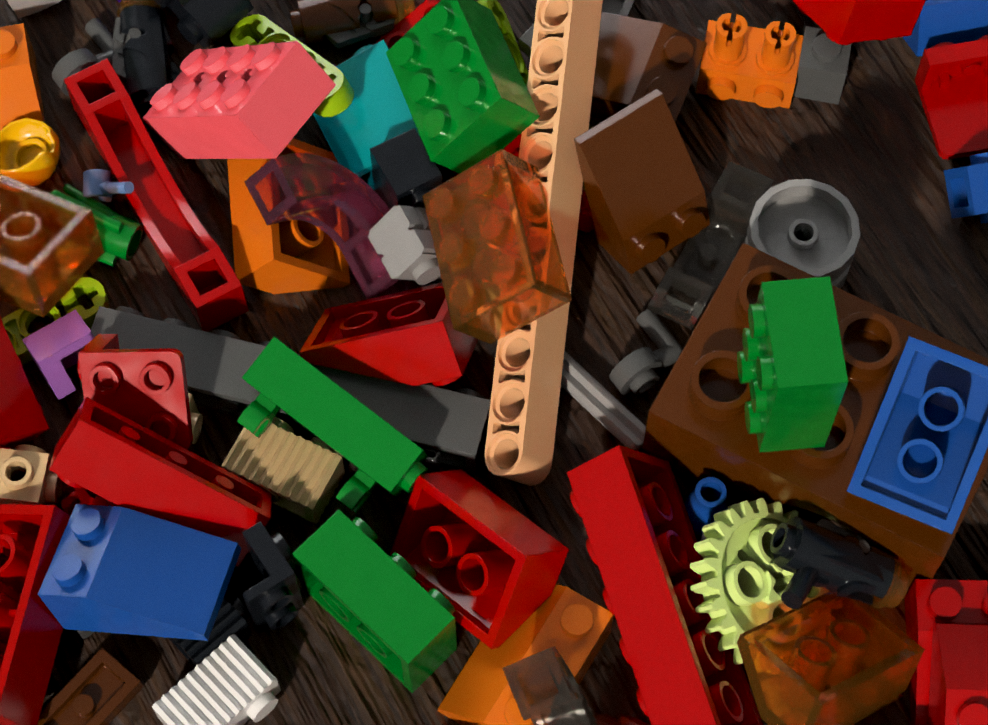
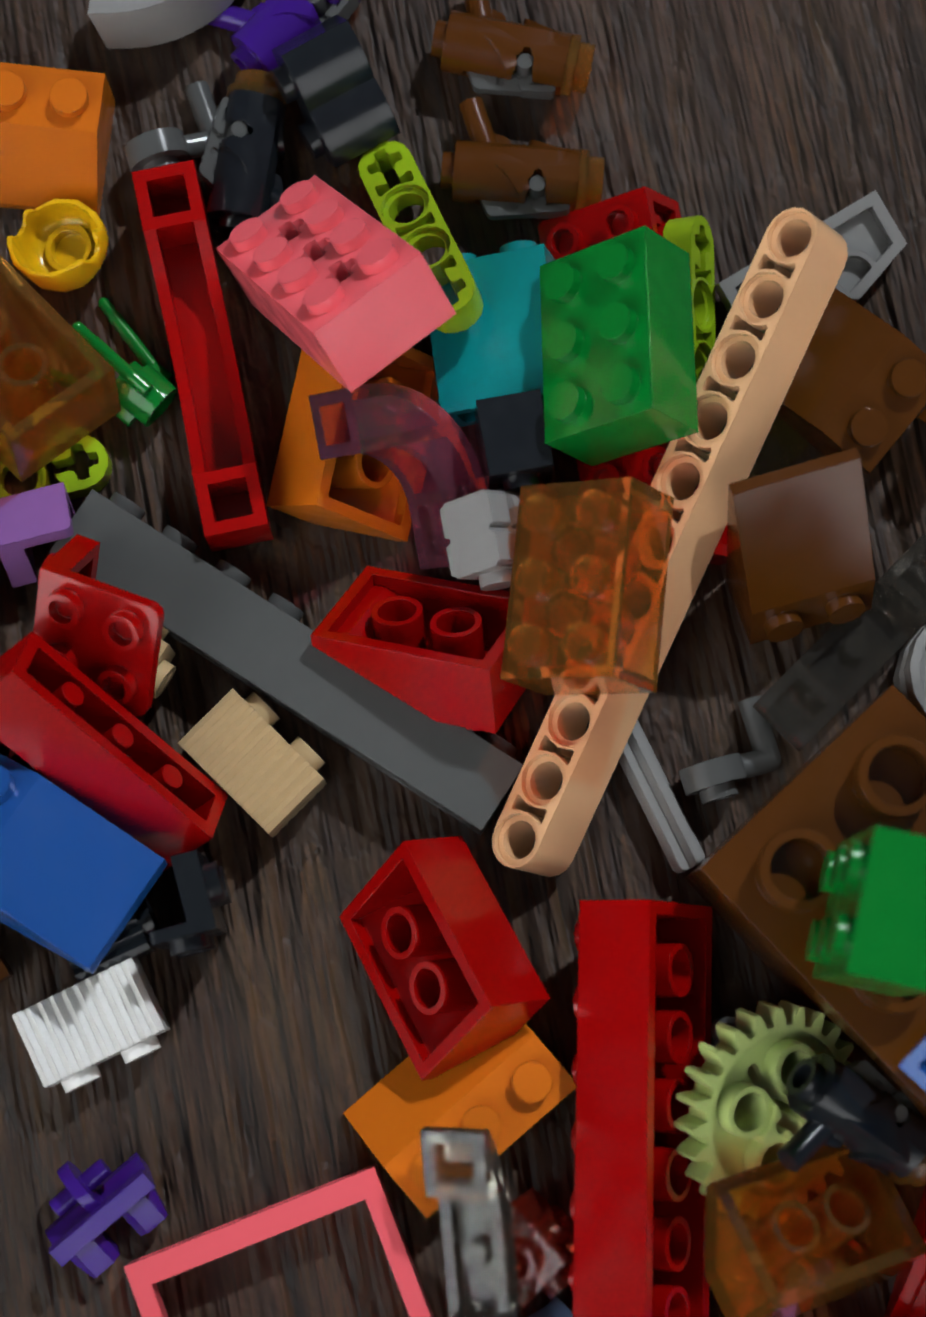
camera: 15 degrees right, 15 degrees up
(99, 183) = (141, 316): medium blue hand -> none
(335, 418) = (326, 739): green brick -> none
(377, 599) = (308, 972): green brick -> none
(705, 501) = (724, 990): blue cone -> none

